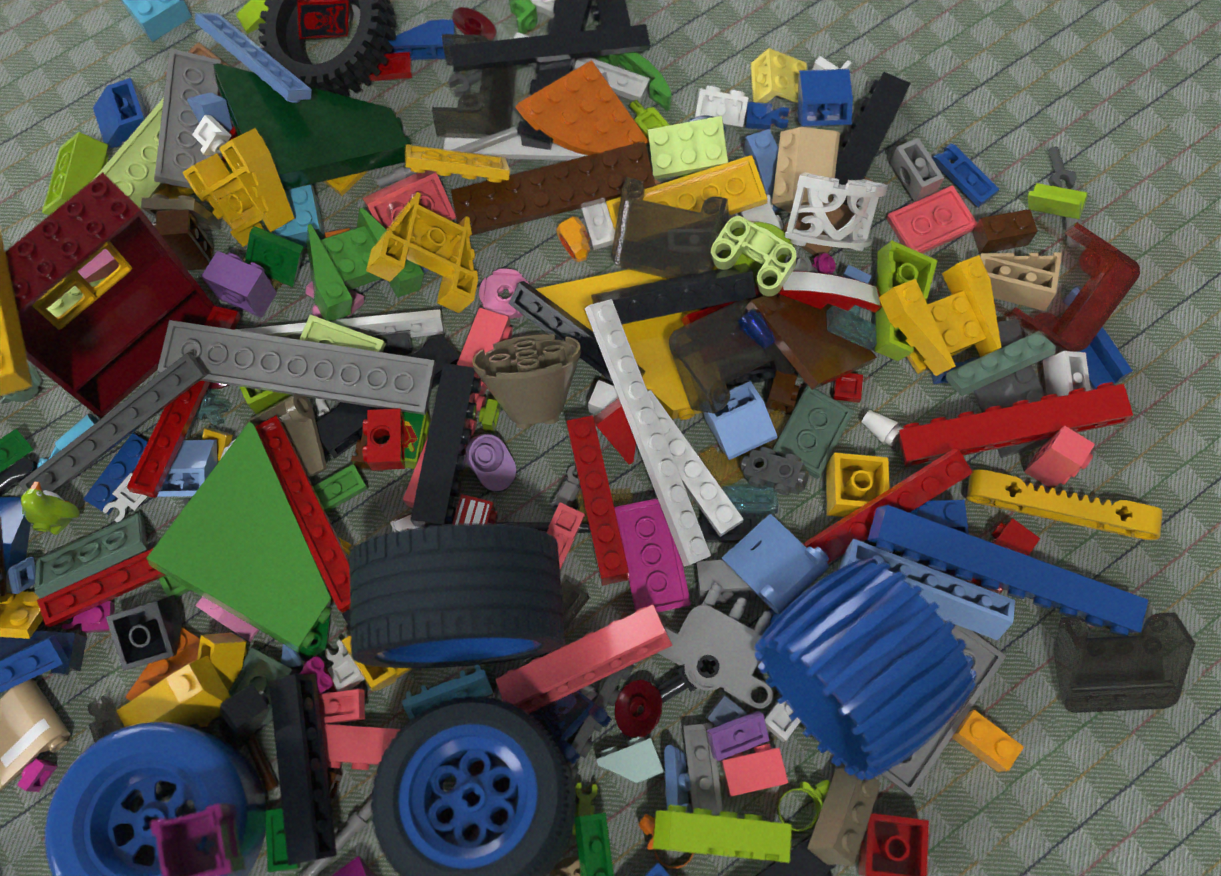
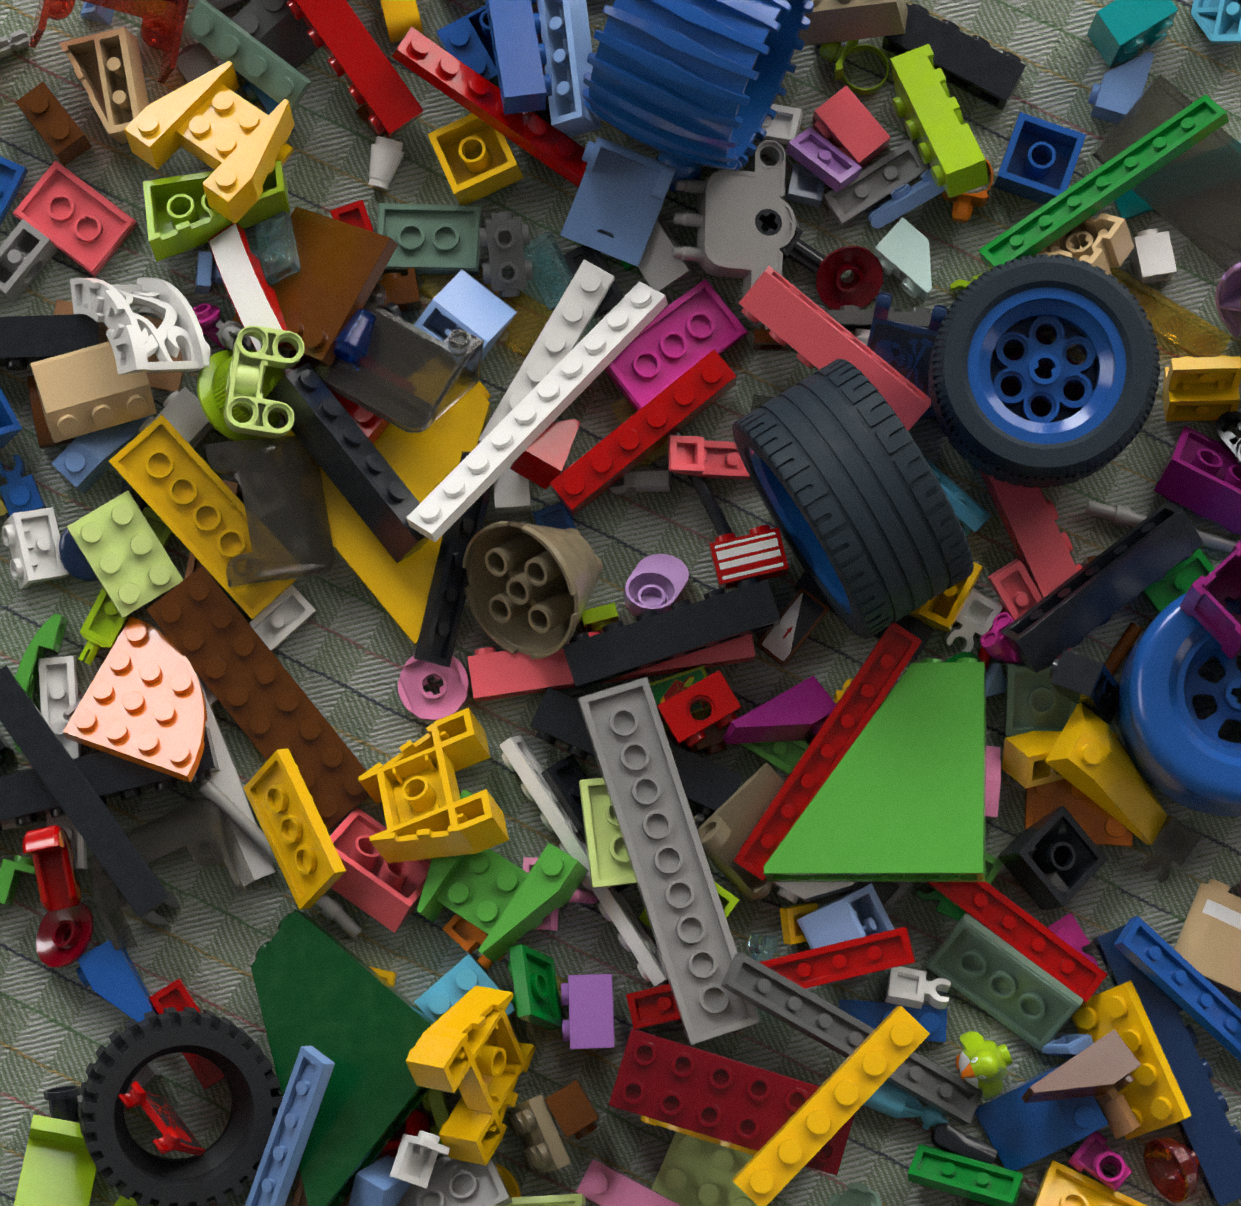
camera: 115 degrees left, 10 degrees up
(349, 506) = (784, 718): none -> magenta slope
(509, 26) = (53, 867): none -> red animal
(568, 414) = (554, 516): none -> blue tile
(574, 238) = (318, 636): light orange rock -> none

